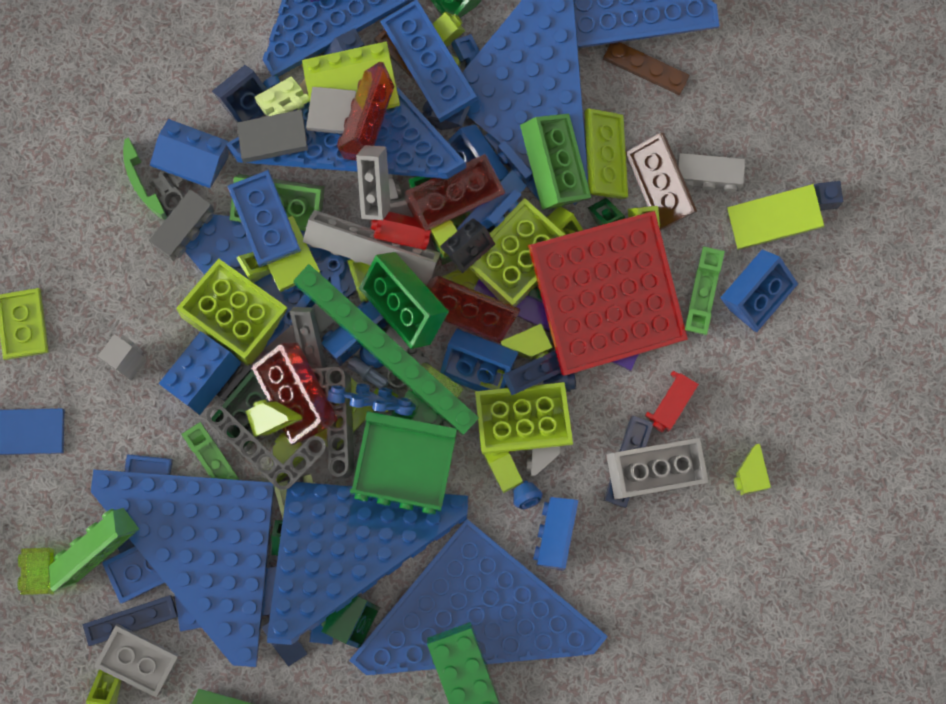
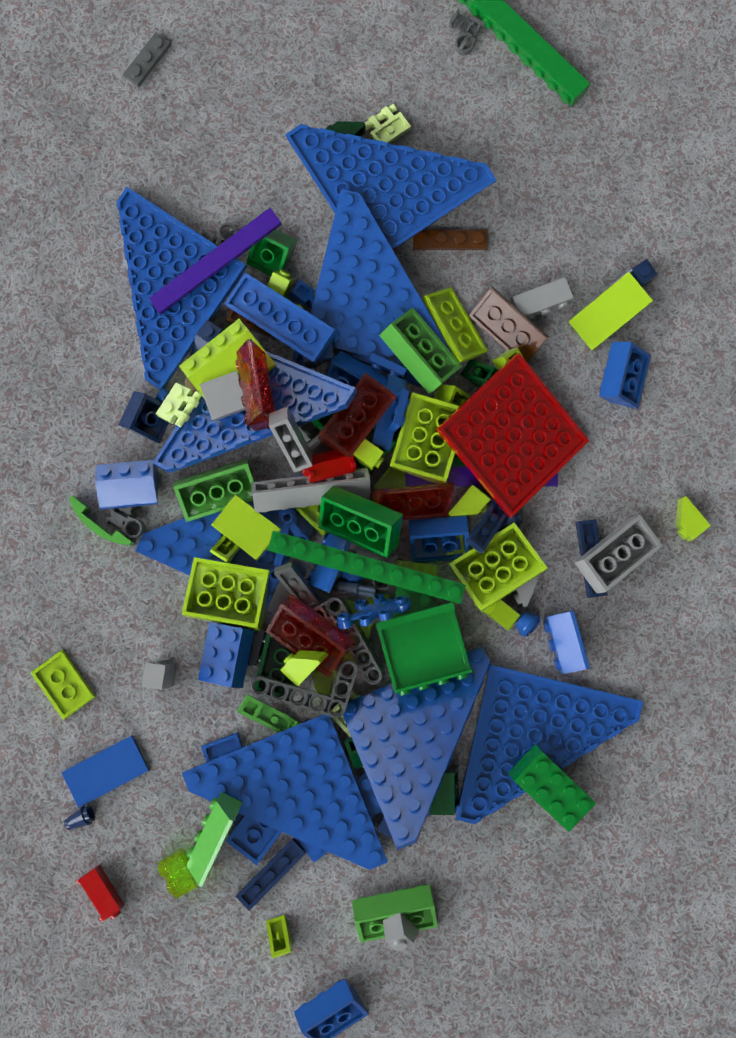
camera: 25 degrees left, 5 degrees up
(136, 660) = (292, 903): light grey plate -> none
(182, 225) = (151, 545): dark grey brick -> none
(264, 218) = (214, 508): blue tile -> none
(272, 136) = (187, 439): dark grey tile -> none
(468, 245) = (388, 451): black bracket -> none
(673, 402) = (603, 495): red brick -> none
(704, 290) = (582, 396): bright green slope -> none

